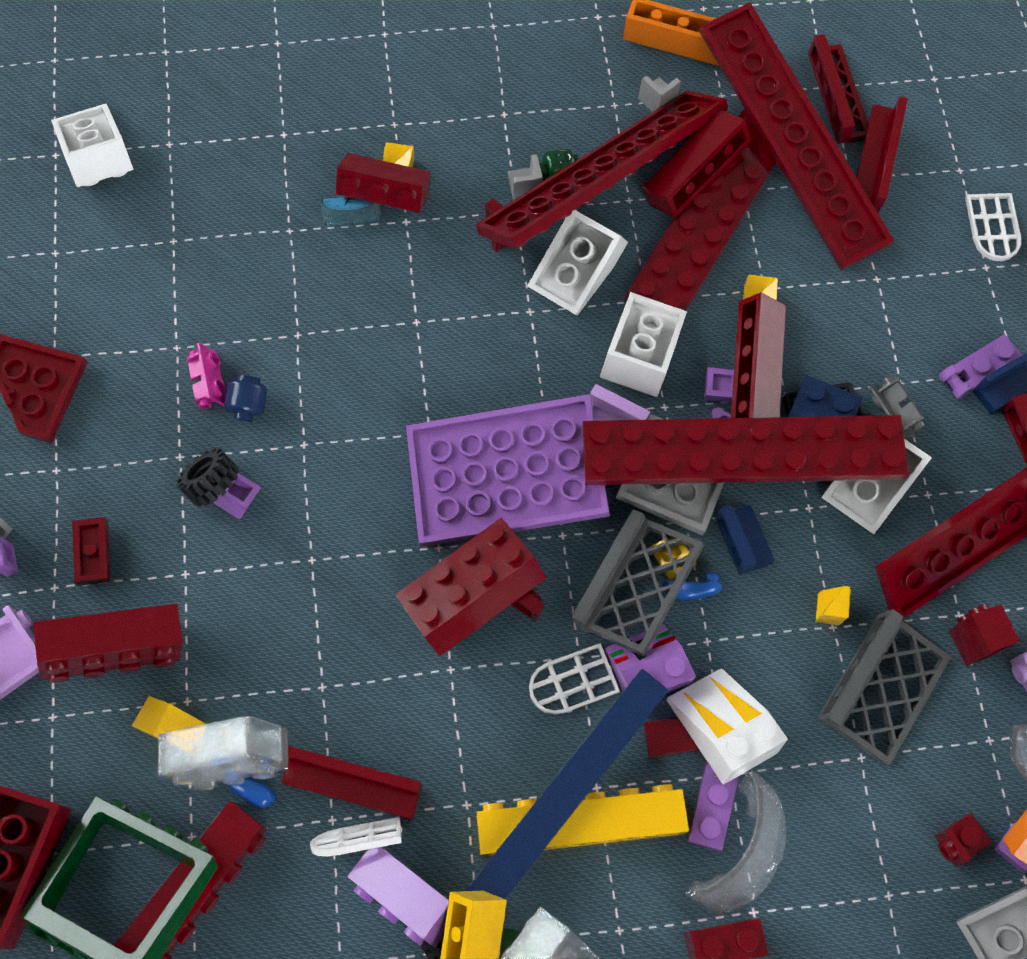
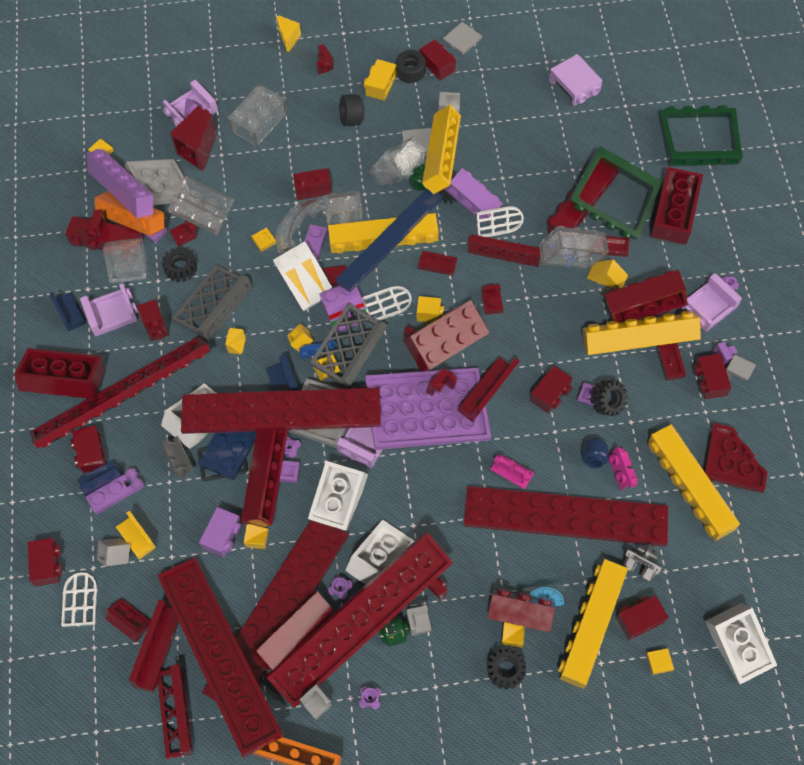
camera: 175 degrees left, 5 degrees down
(29, 519) = (712, 376): none -> dark red brick
(105, 353) = (693, 483): none -> yellow brick
(151, 791) = (618, 246): none -> dark red tile
(187, 584) = (641, 333): none -> yellow brick
(202, 245) = (650, 568): none -> flat silver hips
(205, 129) = (660, 661): none -> yellow tile
(219, 174) = (641, 617): none -> dark red brick
(285, 171) = (593, 623): none -> yellow brick
(300, 502) = (551, 389): none -> dark red brick
(304, 314) = (566, 516): none -> dark red plate
(377, 379) = (512, 471): none -> dark pink hinge
(384, 677) = (492, 299): none -> dark red bracket
(405, 498) = (486, 388): none -> dark red fence
(410, 110) = (513, 657): none -> black tyre
(479, 760) = (437, 263): none -> dark red tile
(486, 499) = (441, 379): none -> dark red bracket
(497, 655) = (429, 309): none -> yellow brick
(589, 92) = (365, 693): none -> medium lavender plate
(634, 220) = (338, 581): none -> medium lavender plate
(660, 862) = (343, 208): none -> clear brick
(721, 612) = (299, 336): none -> yellow slope
(808, 822) = (263, 239): none -> yellow tile
(812, 299) = (221, 532): none -> medium lavender brick
(921, 199) = (127, 619): none -> dark red slope
(934, 302) = (135, 536): none -> yellow panel
(941, 876) = (201, 205): none -> clear brick
(963, 278) = (113, 551): none -> light grey panel
(977, 765) = (175, 256): none -> black tyre

